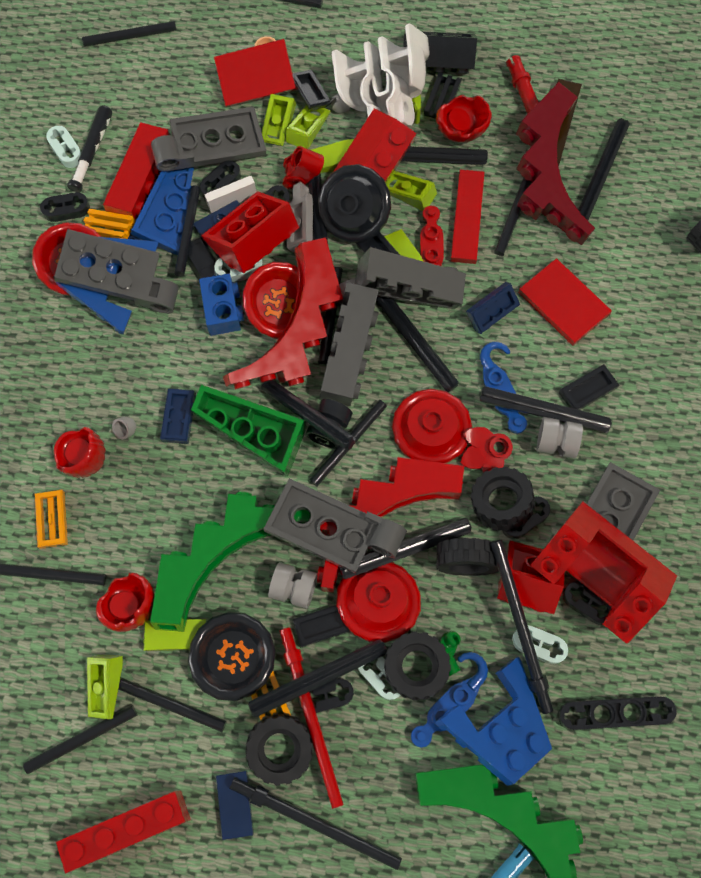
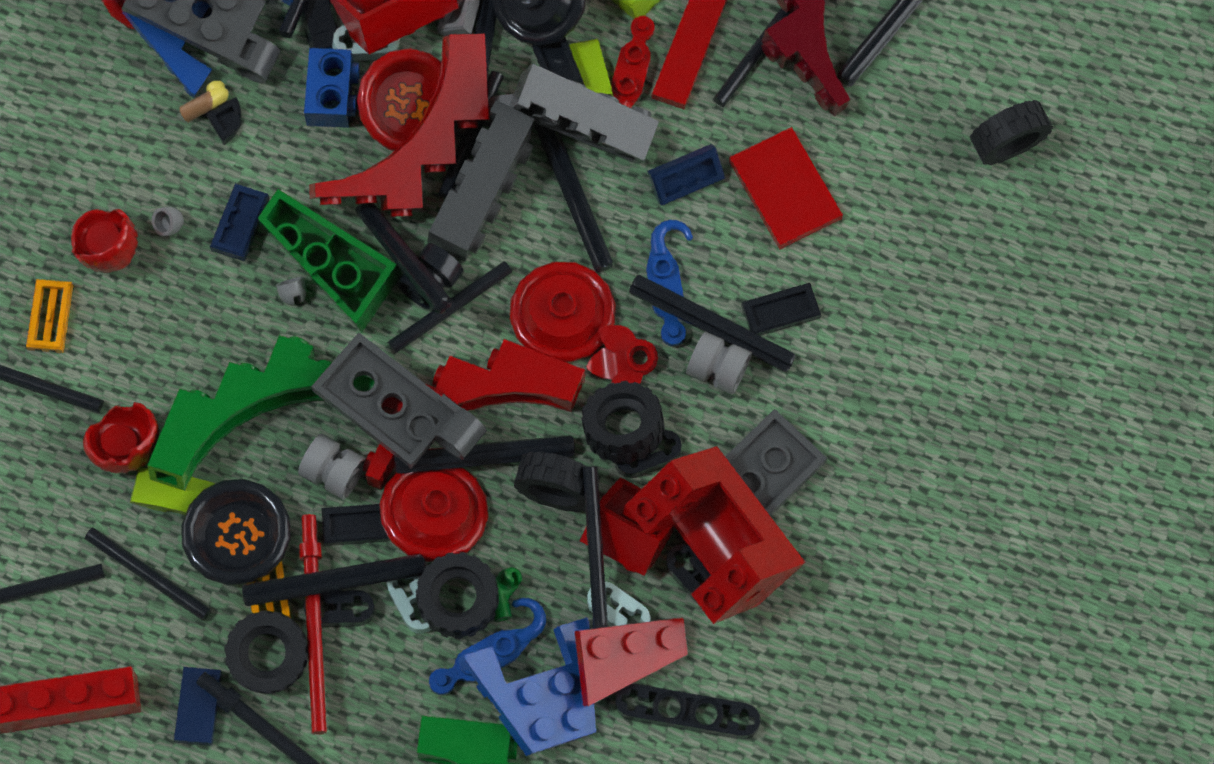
camera: 10 degrees right, 0 degrees up
(103, 684) = (71, 530): lime slope -> none
(138, 330) = (214, 97): none -> arm
(150, 344) = (226, 120): none -> black tile
(227, 456) = (290, 288): none -> light grey hinge
(559, 681) = (626, 653): none -> wing

